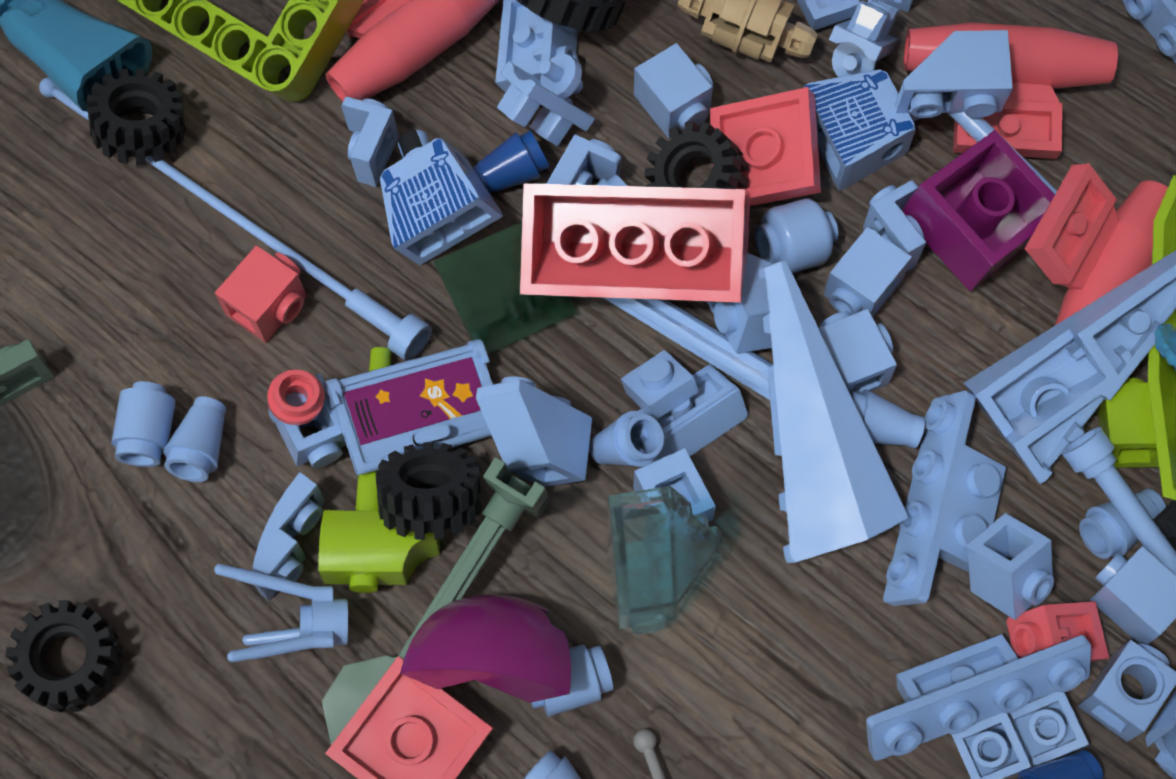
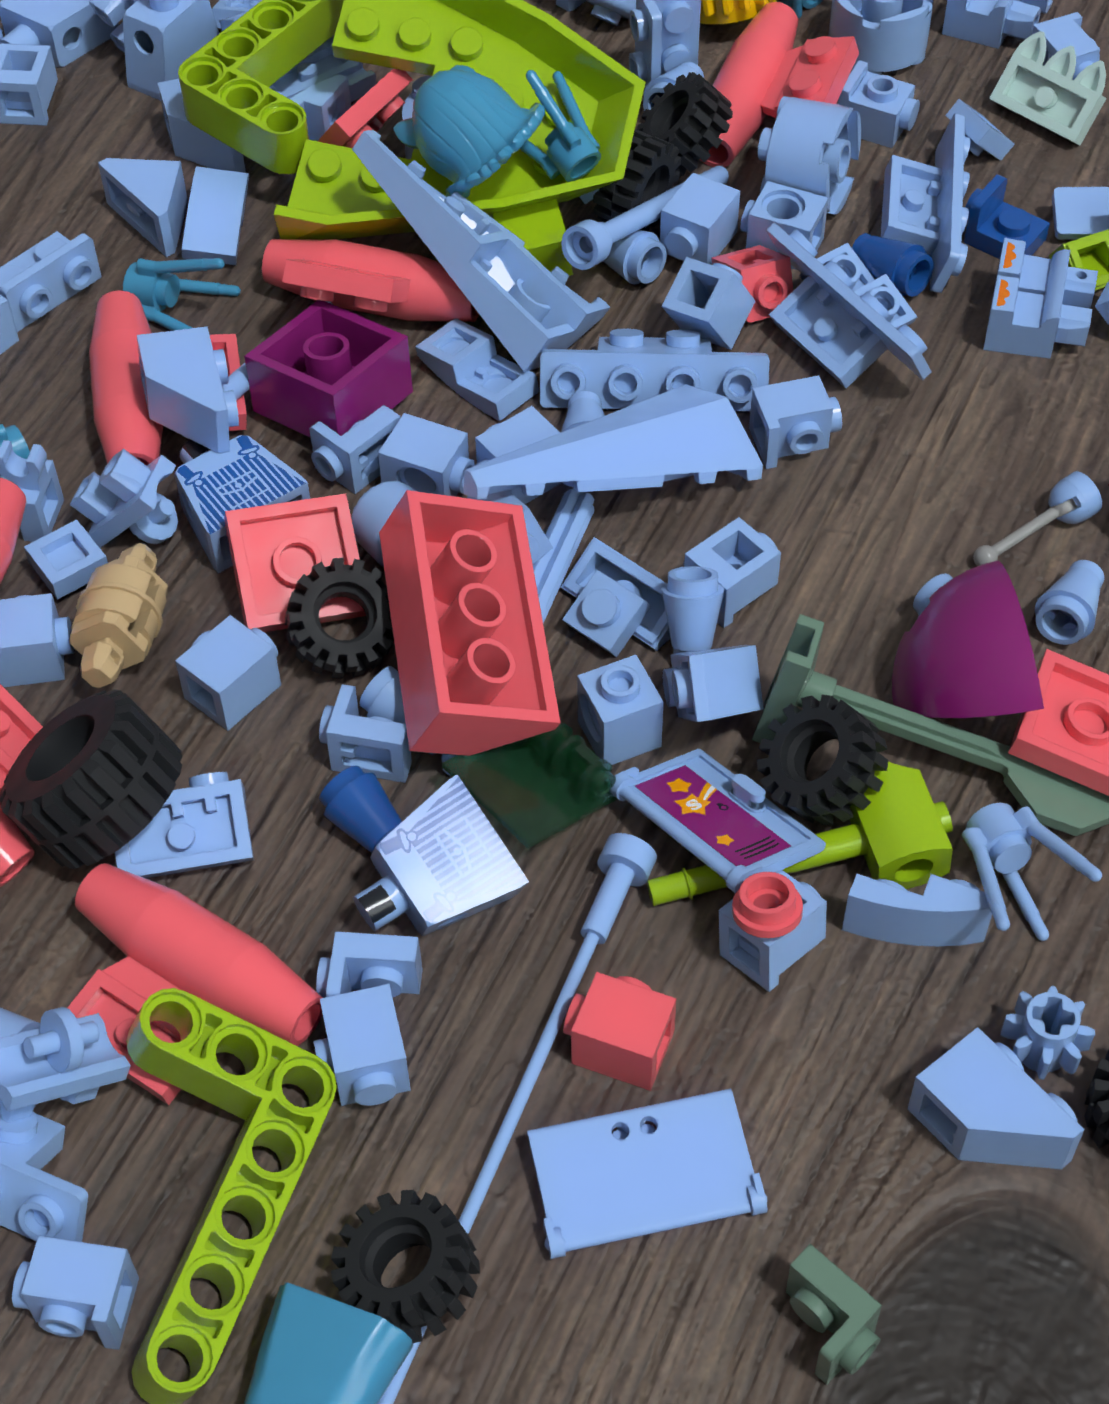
camera: 105 degrees left, 15 degrees down
(103, 529) = (991, 1109): none -> light blue slope
(142, 424) = (842, 1111): light blue brick -> none
(149, 581) = (1052, 1014): none -> light blue gear
(151, 302) = (641, 1178): none -> light blue door
(197, 441) = (836, 1046): light blue cone -> none
(309, 125) = (364, 1046): none -> light blue brick
(526, 93) = (273, 769): light blue hips -> none
(547, 358) = (620, 710): none -> light blue brick
(656, 556) = (824, 533): clear light blue wedge -> none
(847, 608) = (792, 418): none -> light blue brick
(982, 346) = (470, 367): none -> light blue slope
(1138, 102) = (160, 289): none -> dark azure plant

